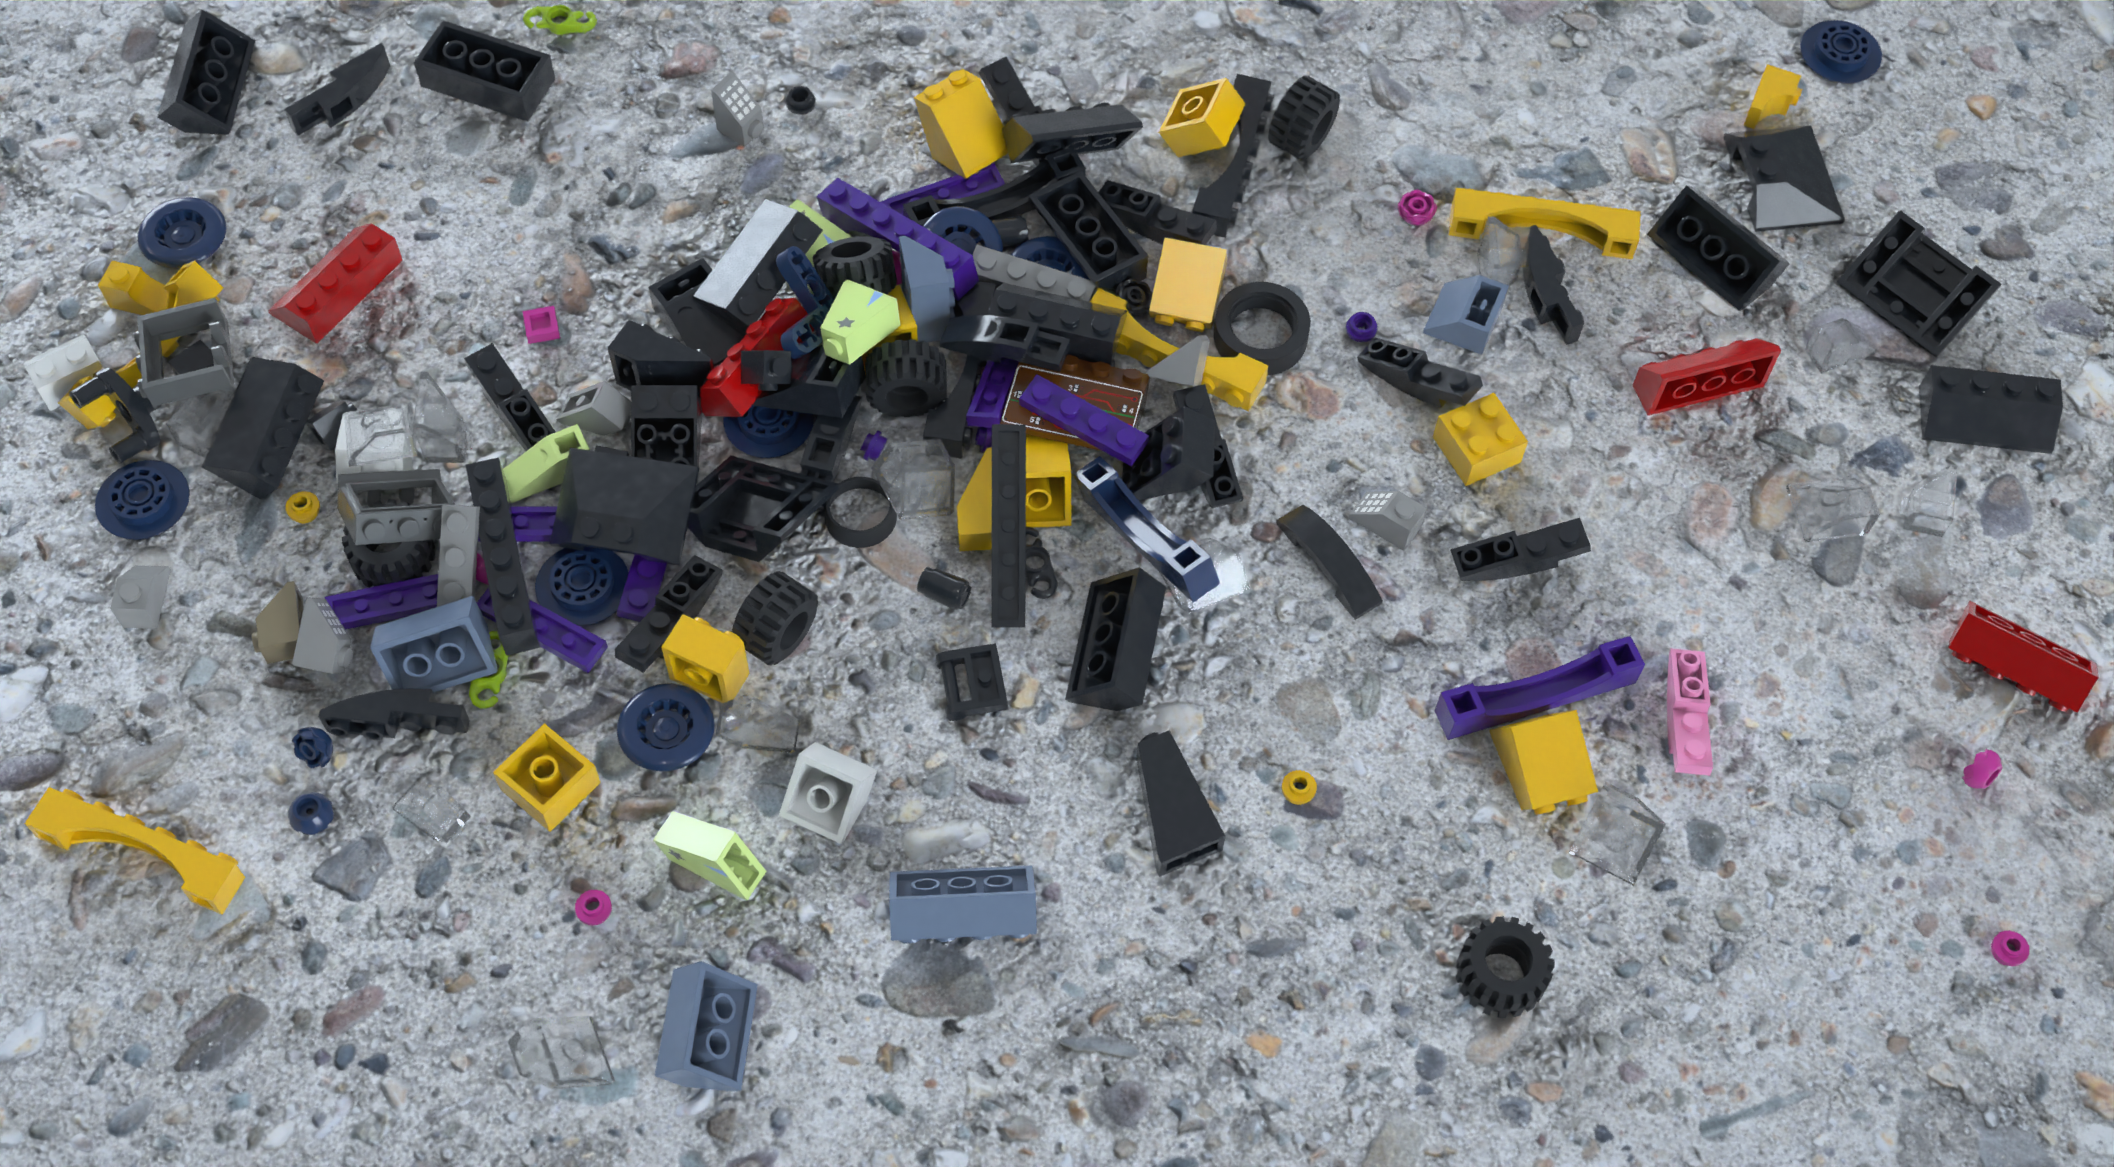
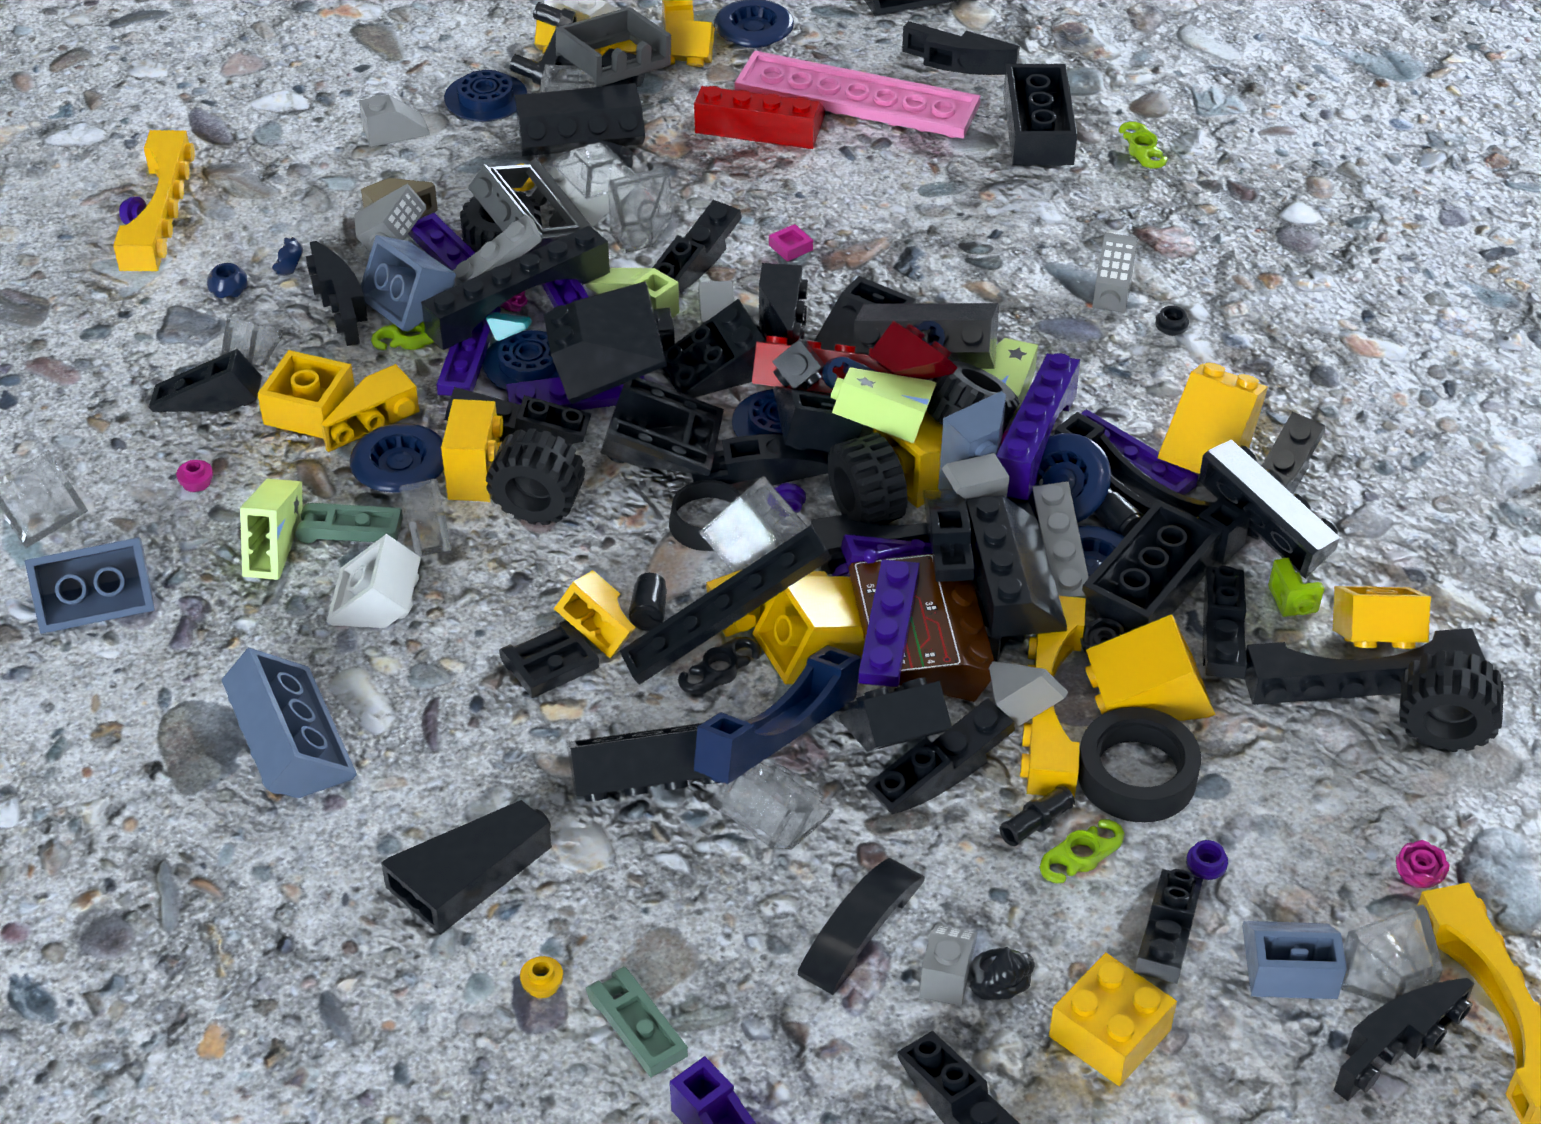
camera: 70 degrees right, 15 degrees down
(144, 874) = (131, 208): none -> dark purple plate
(350, 195) = (862, 94): none -> bright pink plate
(477, 868) = (212, 386): none -> black slope
(542, 580) = (506, 325): none -> slope
(580, 724) = (373, 403): none -> yellow slope
(734, 786) = (348, 522): none -> sand green plate
(819, 283) = (906, 354): none -> dark red slope
(948, 628) = (595, 612): none -> yellow arch
(970, 295) = (977, 476): none -> light grey slope
(994, 374) = (917, 546): none -> dark purple hinge
(1137, 162) = (1290, 592): none -> lime bracket
(1281, 411) = (1037, 815): none -> black pin
(1319, 410) = (1063, 854): none -> lime piece
(1365, 735) = (638, 1022): none -> sand green plate
(1421, 479) = (1006, 975): none -> black piece

